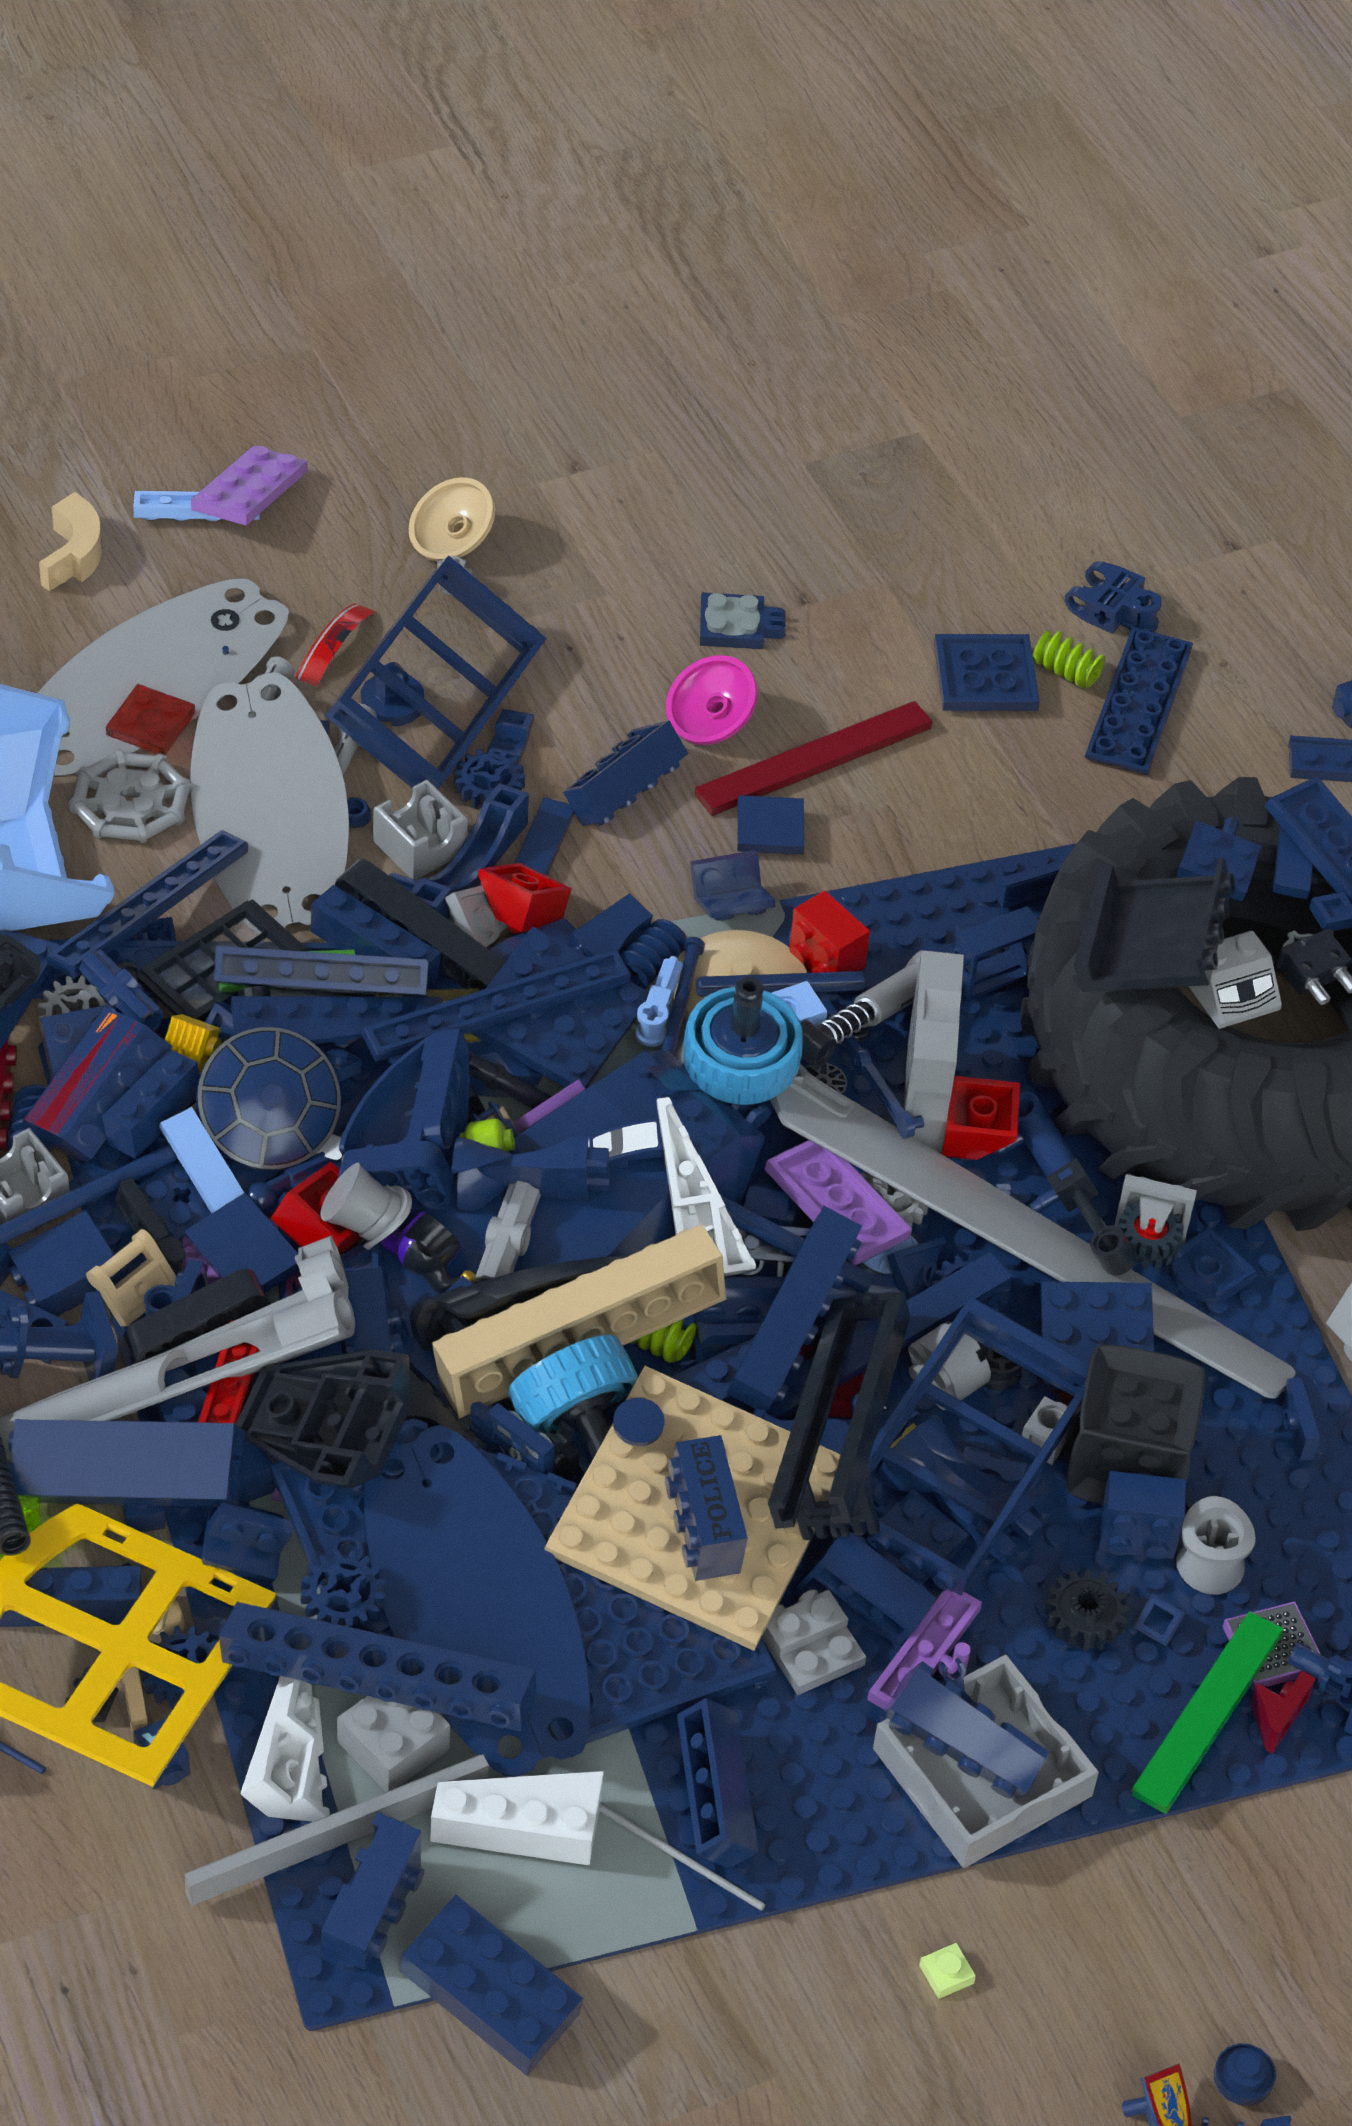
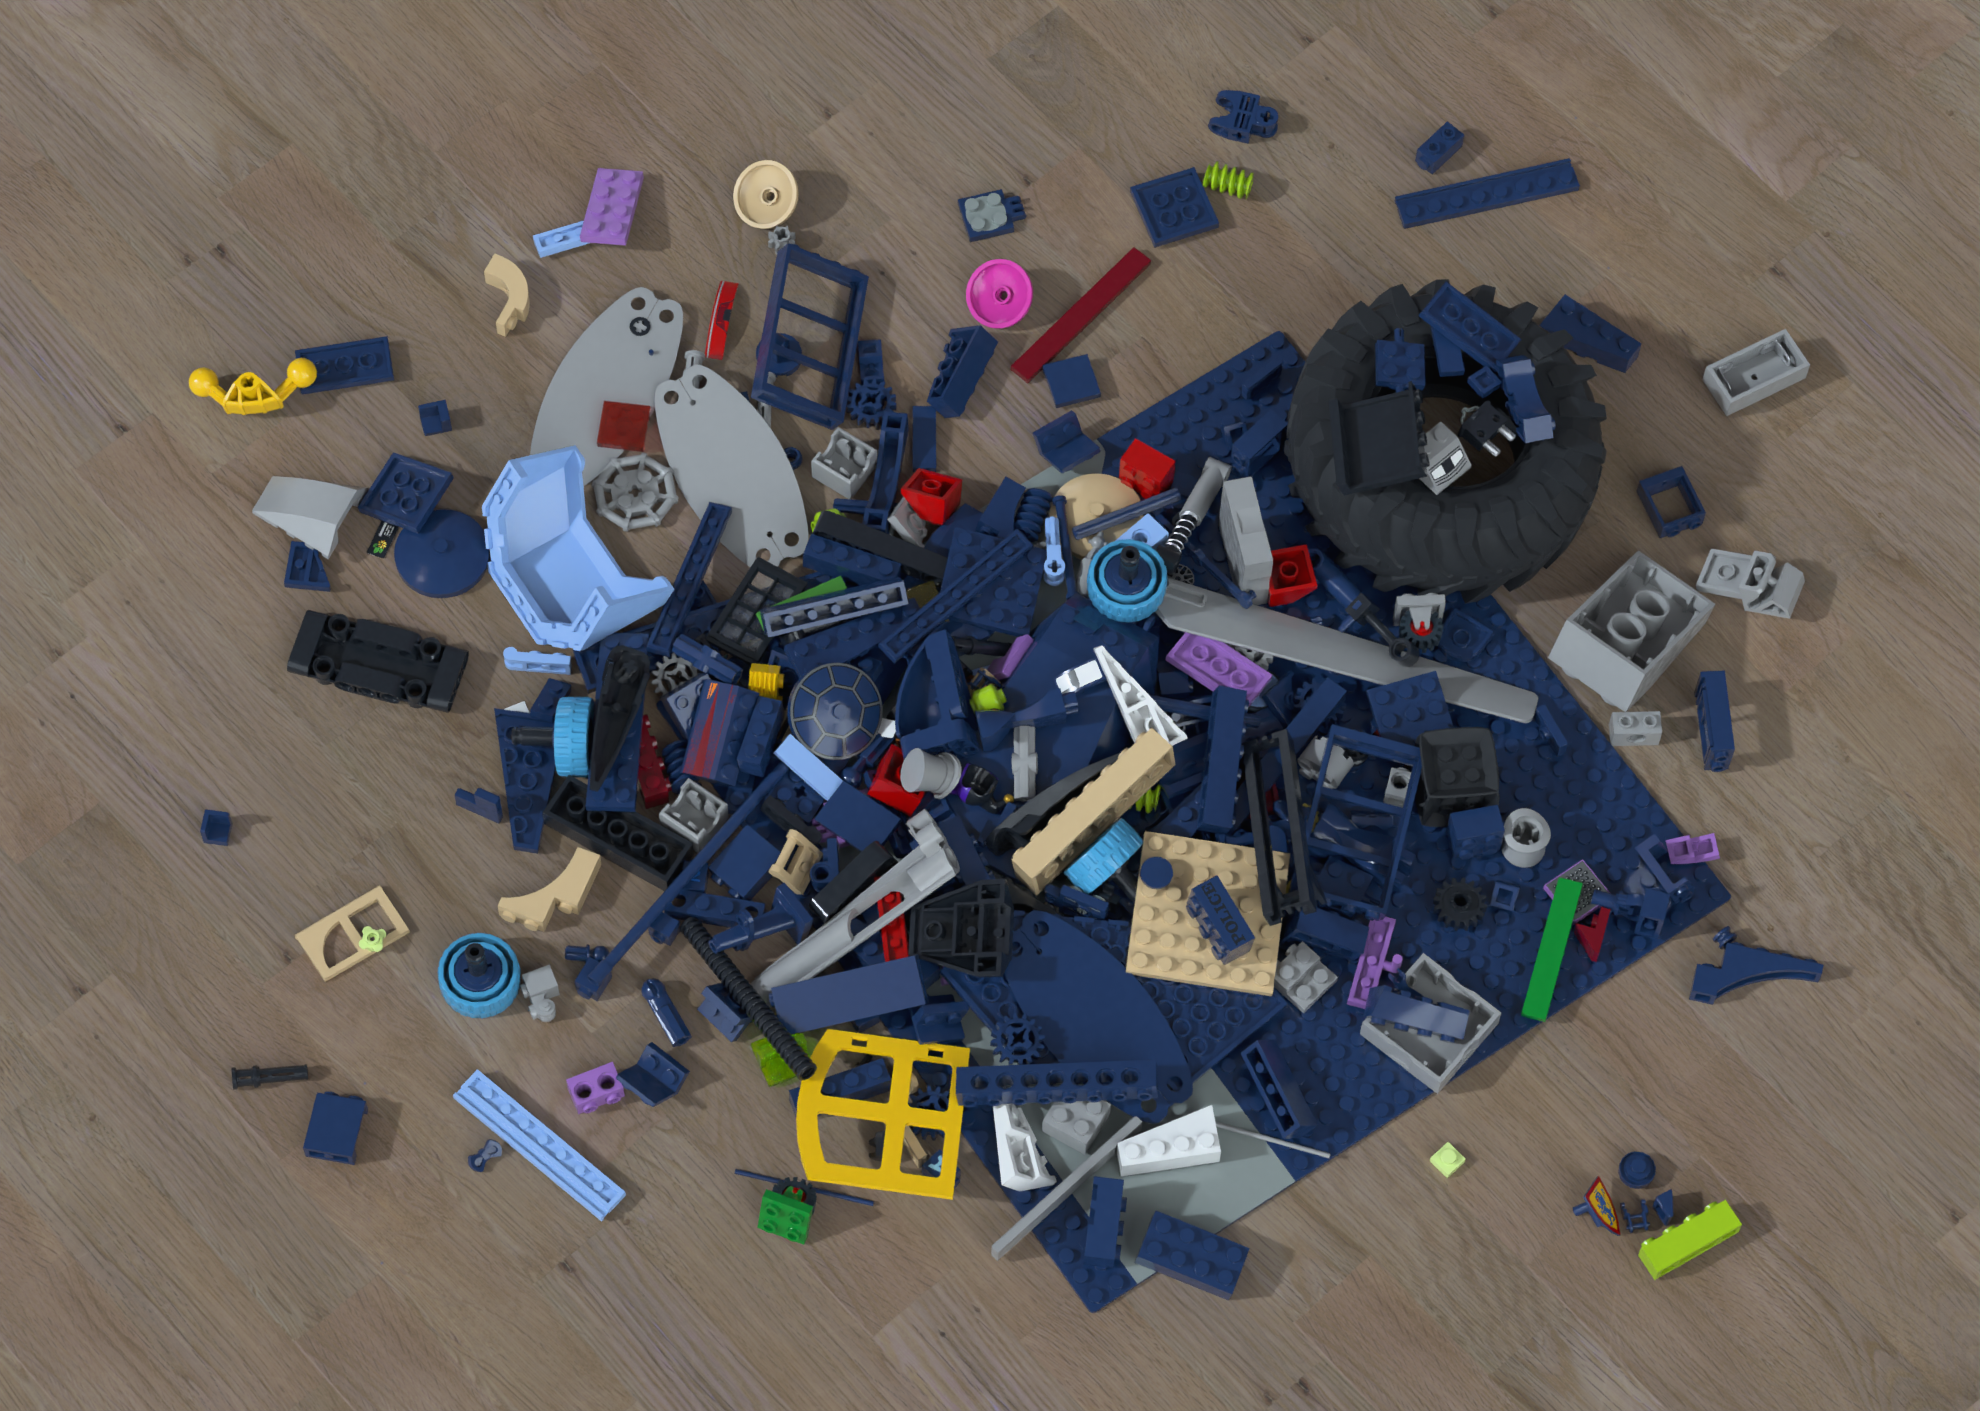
camera: 15 degrees left, 15 degrees up
(1139, 700) = (1284, 197): dark blue plate -> none

